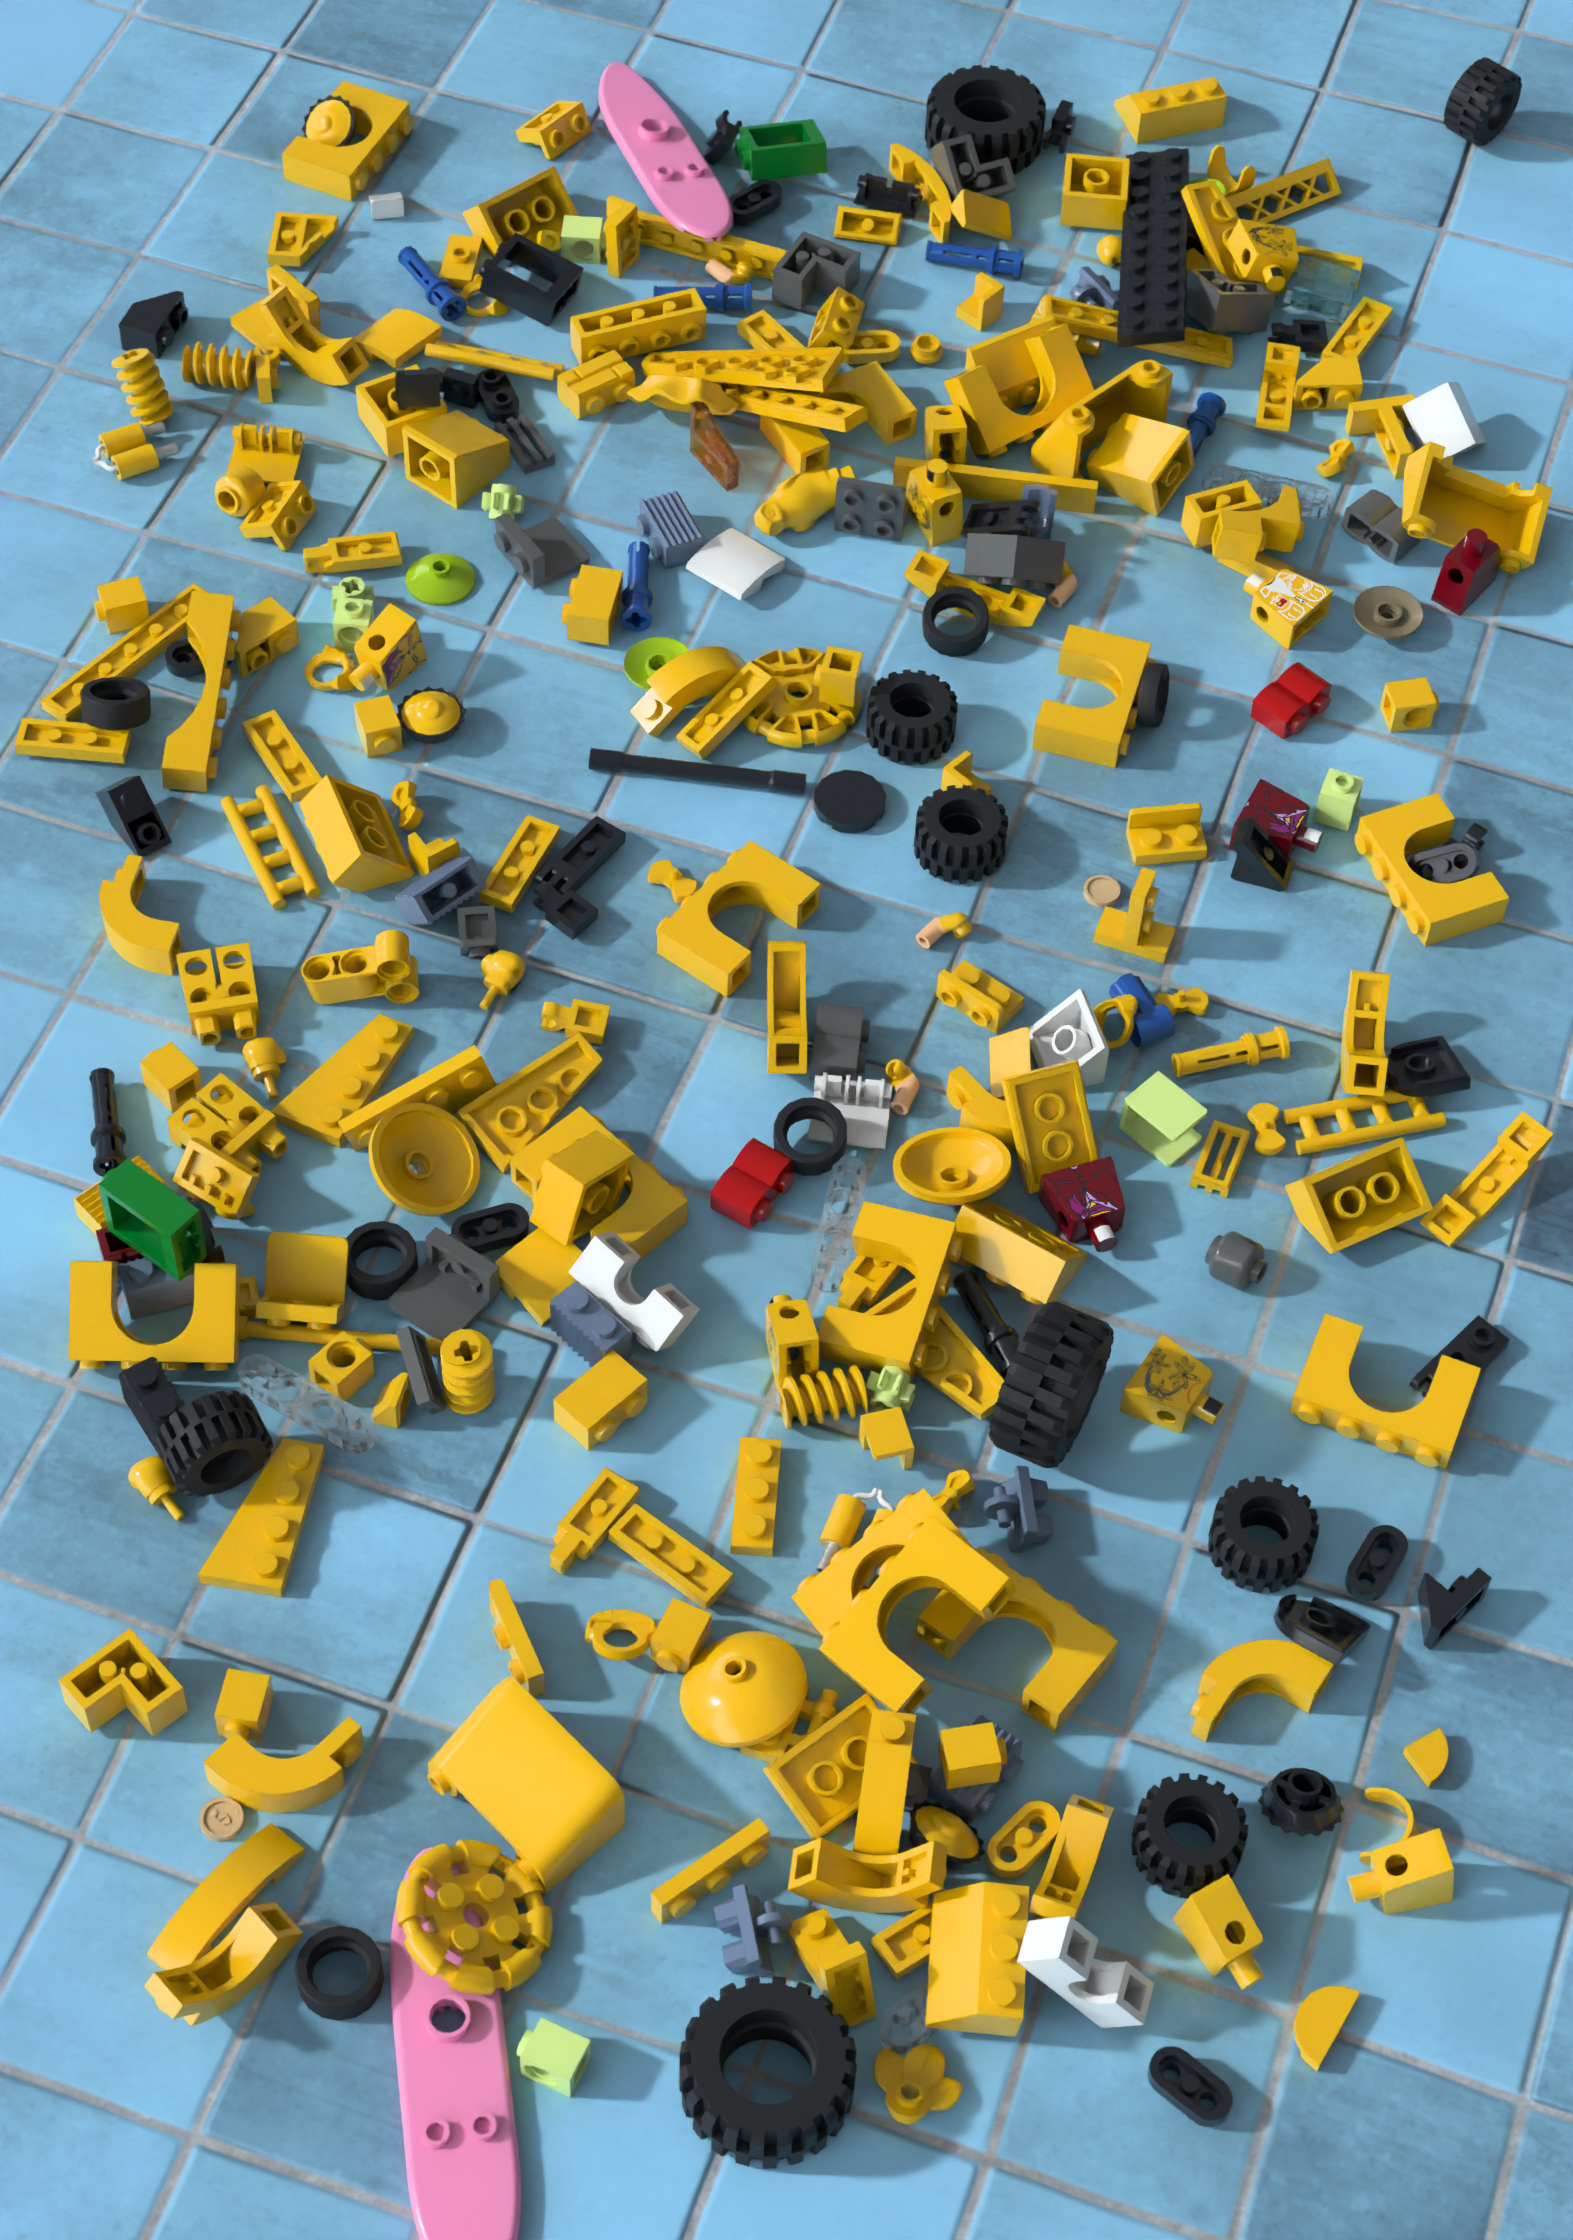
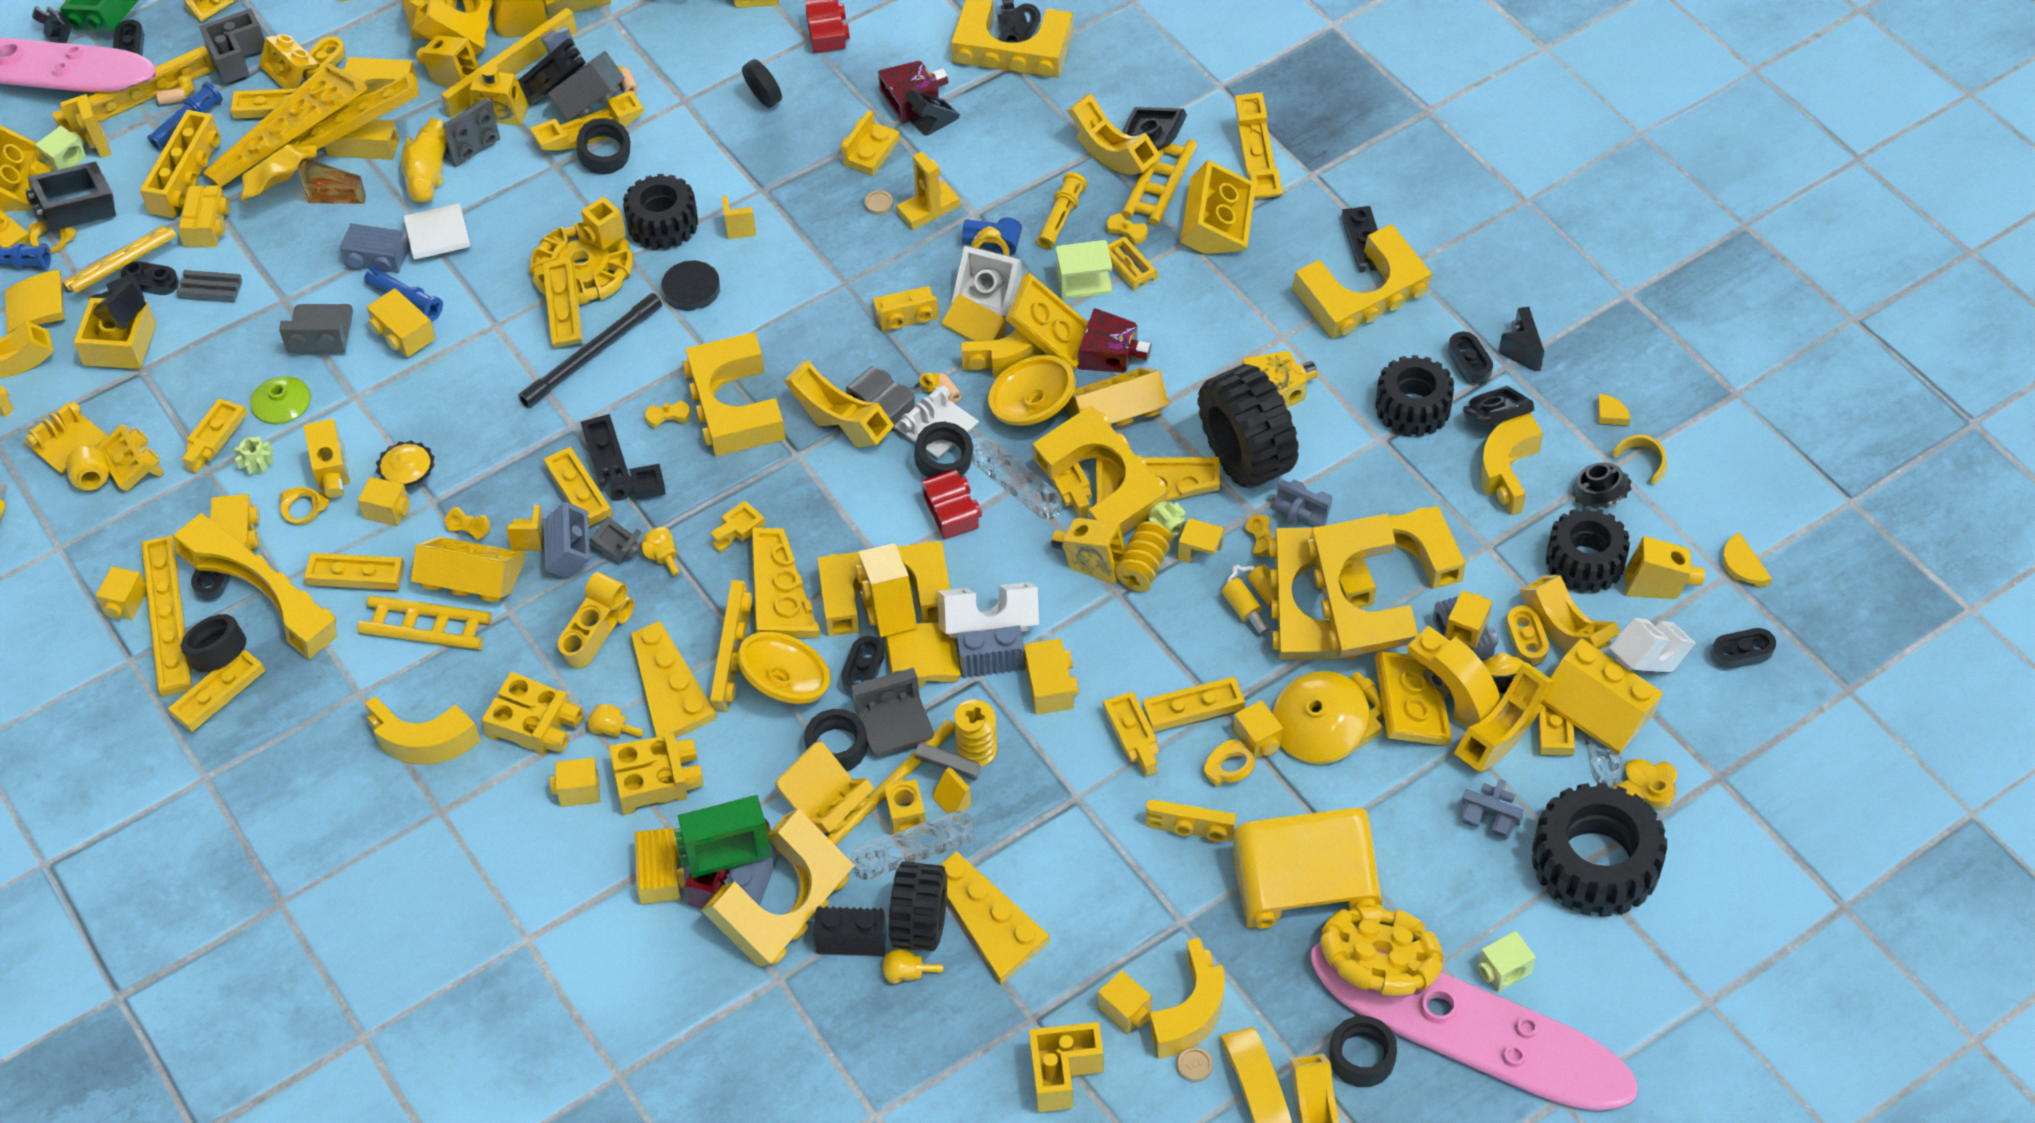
camera: 50 degrees left, 0 degrees up
(107, 1135) = (592, 847): black pin -> none
(134, 815) = (323, 685): black slope -> none
(216, 1179) = (694, 792): yellow bracket -> none
(351, 621) = (281, 466): yellowish green brick -> none
(453, 456) = (187, 329): yellow slope -> none
(502, 500) = (256, 324): yellowish green gear -> none
(648, 656) = (484, 318): lime dish -> none
(684, 681) = (521, 313): yellow arch -> none
(711, 1871) = (1437, 806): yellow plate -> none
(755, 1497) = (1182, 636): yellow plate -> none
(834, 1965) = (1545, 775): yellow bracket -> none
(926, 349) = (355, 30): yellow plate -> none
(941, 925) = (833, 296): arm -> none
(960, 812) = (794, 238): black tyre -> none
(999, 1338) = (1171, 444): black pin -> none
(1099, 732) = (724, 87): yellow arch -> none
(1193, 1001) = (1003, 207): yellow piece -> none
(1236, 1260) = (1212, 296): dark grey head -> none
(1338, 799) = (923, 45): yellowish green brick -> none
(1407, 1874) = (1687, 460): yellow torso -> none

